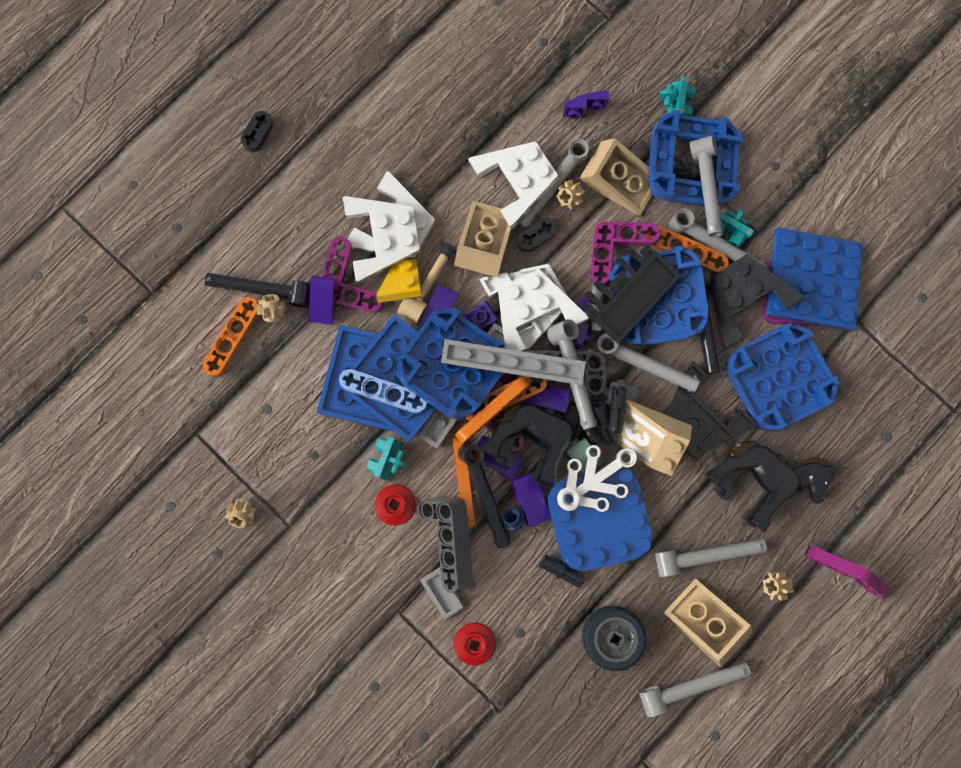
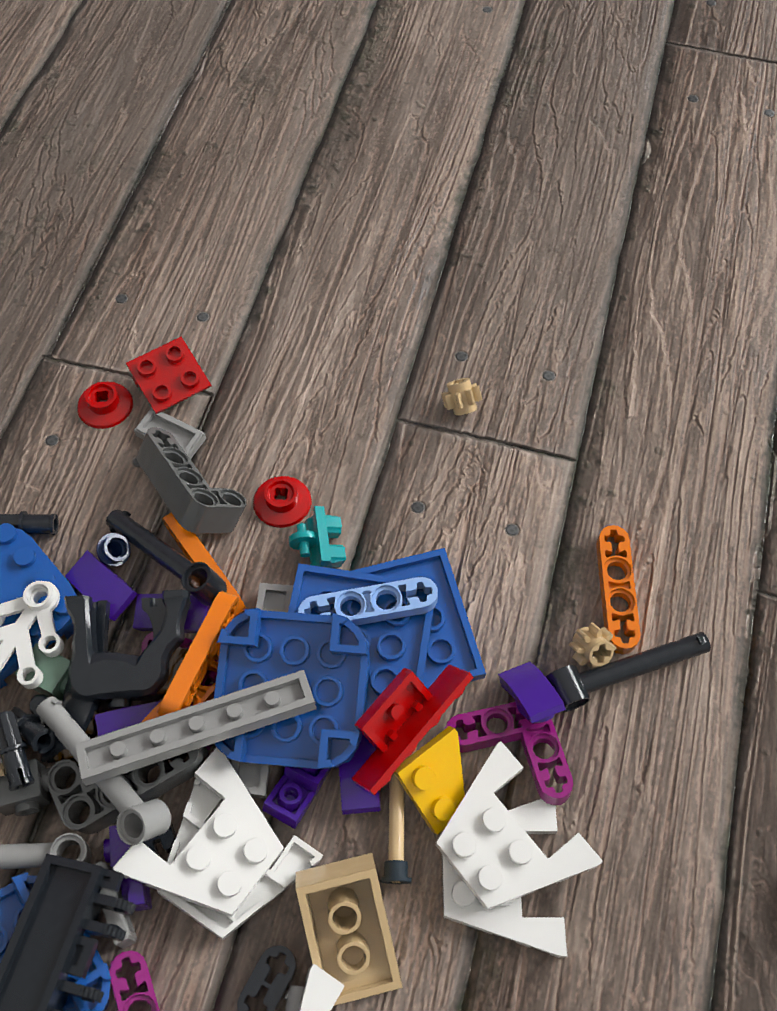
camera: 150 degrees right, 20 degrees down
(400, 312) = (402, 719): none -> red bracket
(422, 637) = (168, 375): none -> red hinge

